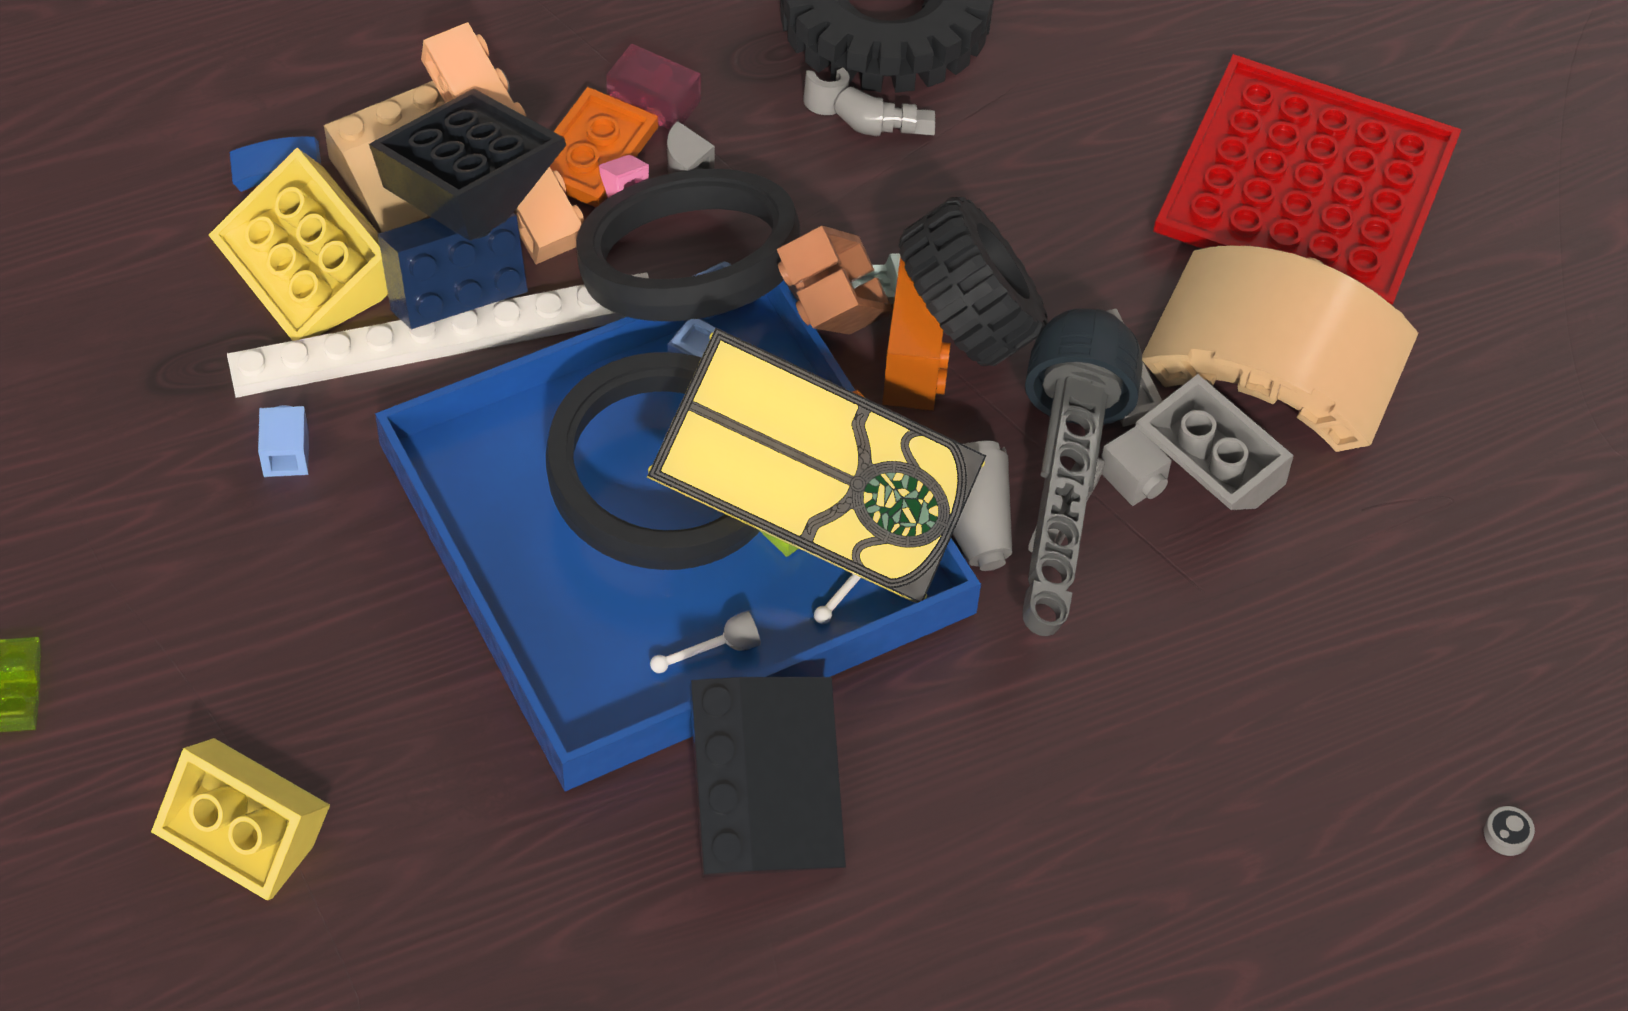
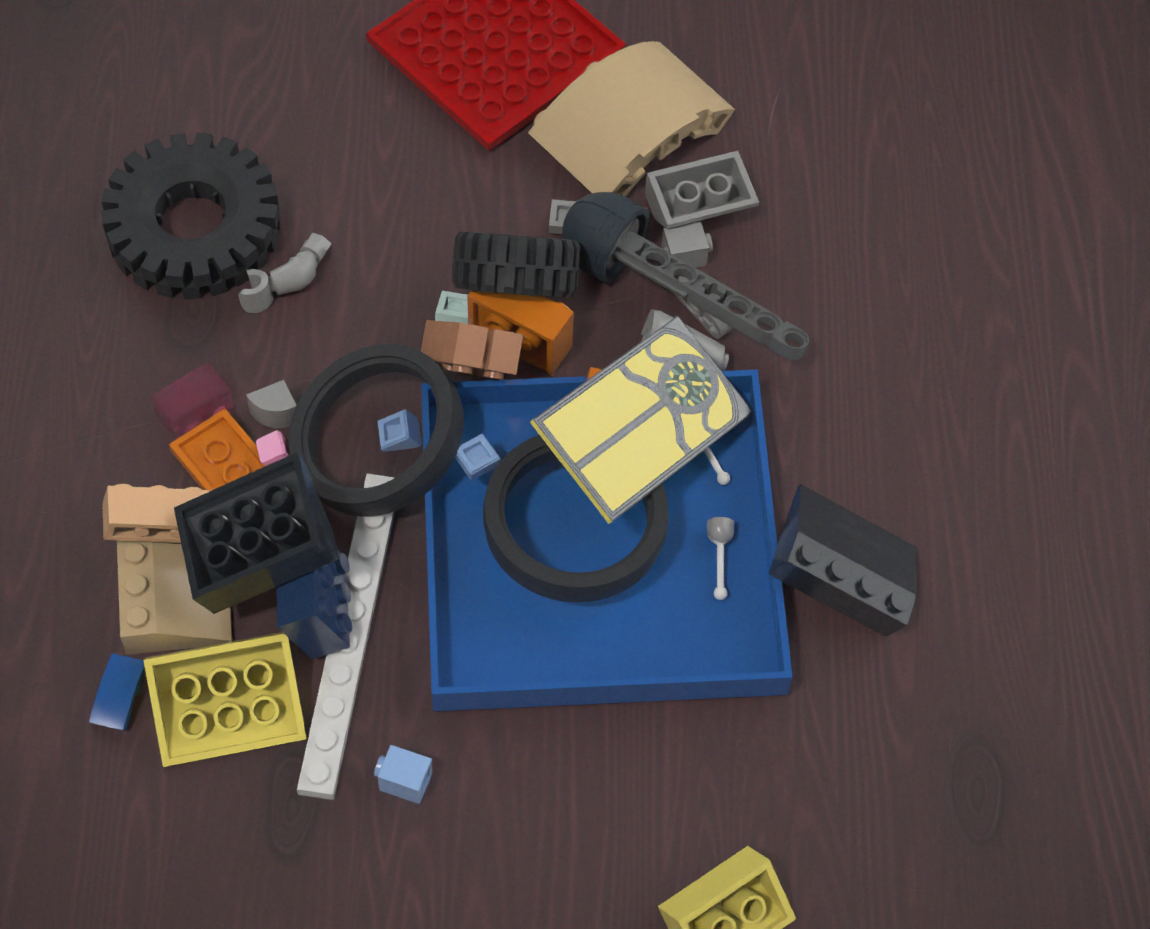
camera: 65 degrees left, 5 degrees up
(1509, 830) = (1036, 176): light grey tile -> none

